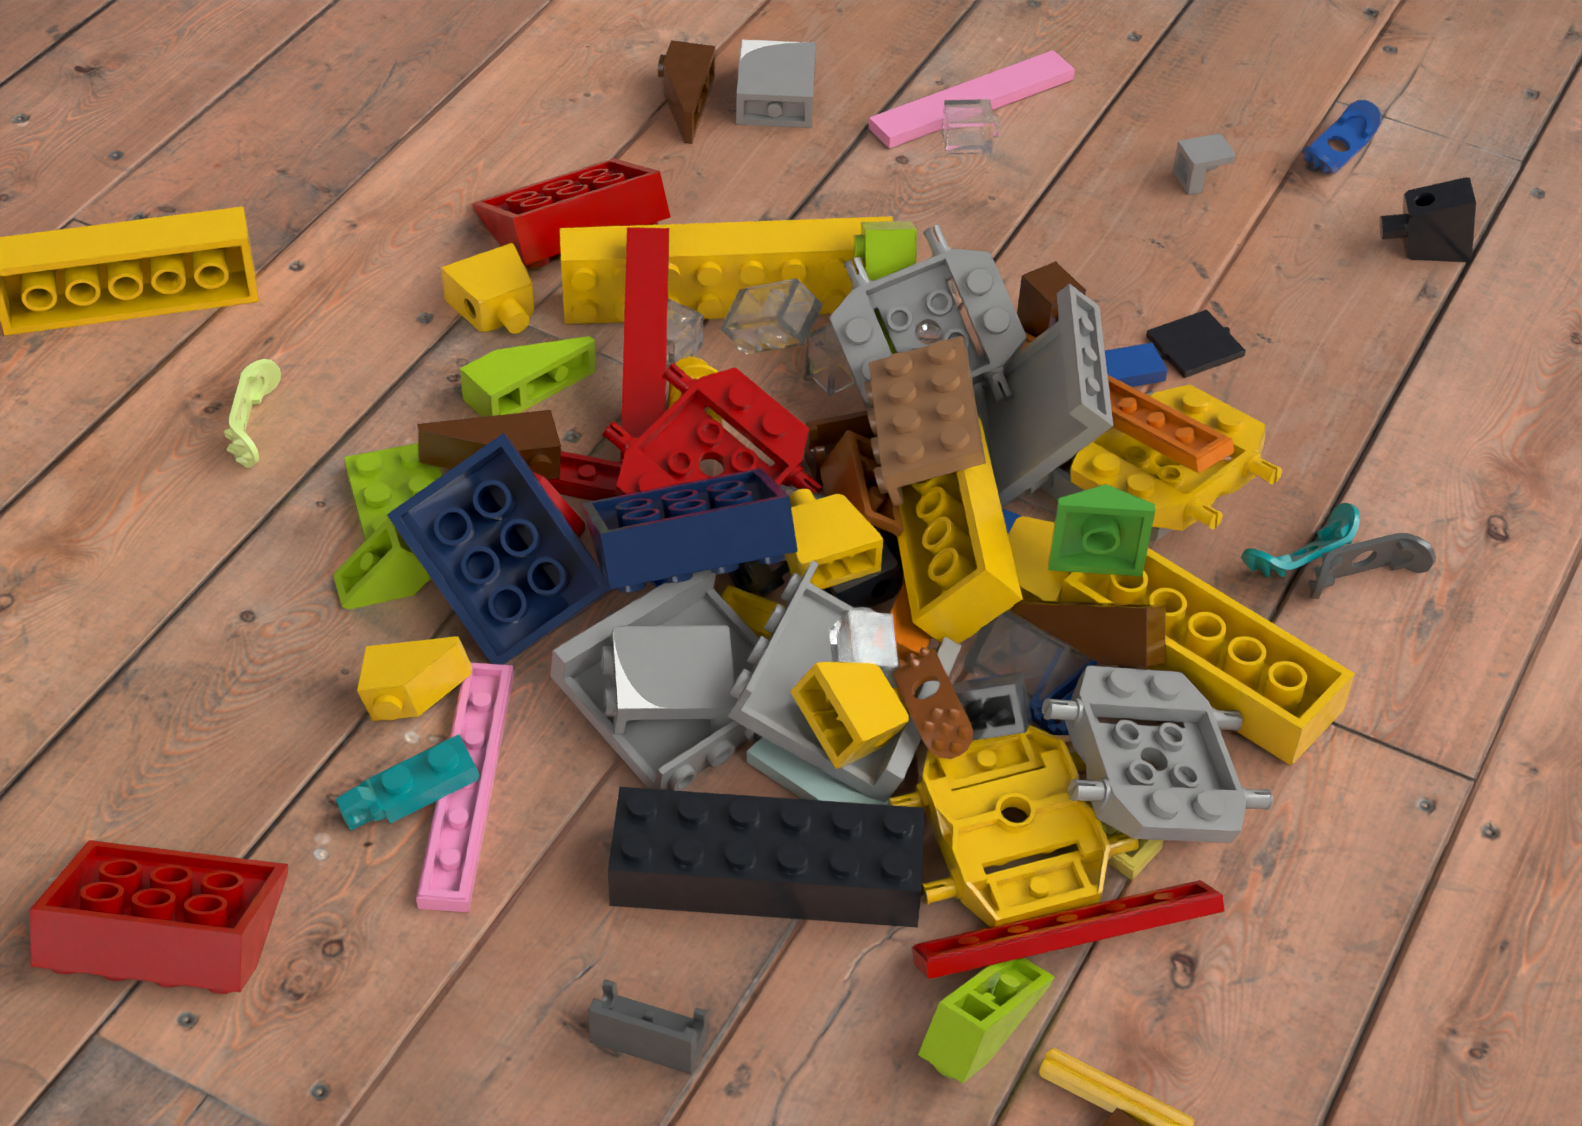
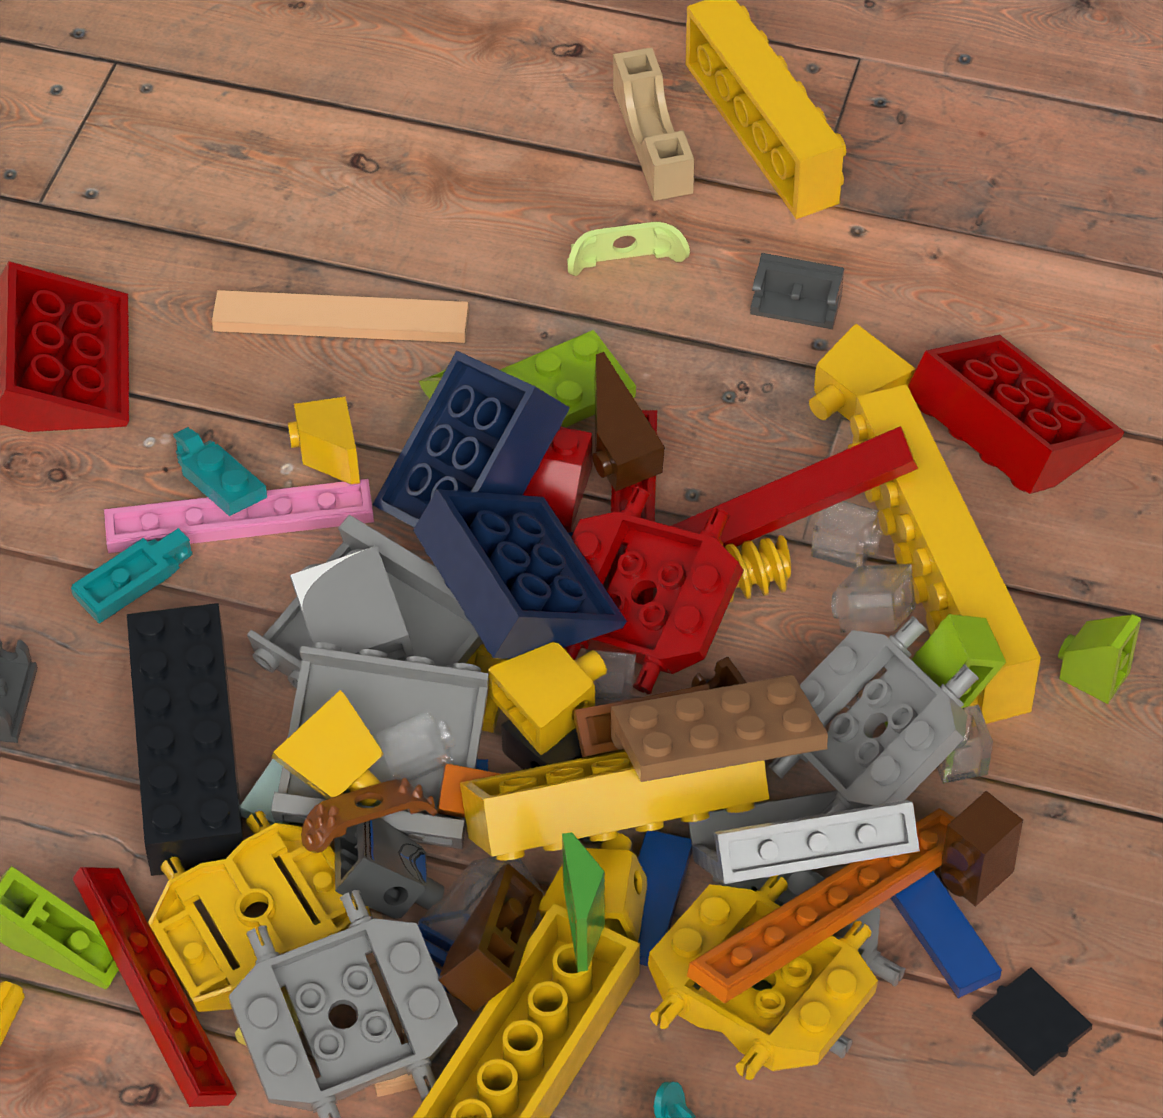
camera: 80 degrees right, 5 degrees up
(47, 358) = (660, 150): none -> tan arch
(218, 659) = (340, 316): none -> light nougat tile
(364, 309) = (797, 291): none -> dark grey hinge
(524, 885) = (131, 574): none -> teal hinge
(525, 375) = (737, 426): lime slope -> none
(867, 192) = (1100, 655): none -> lime slope

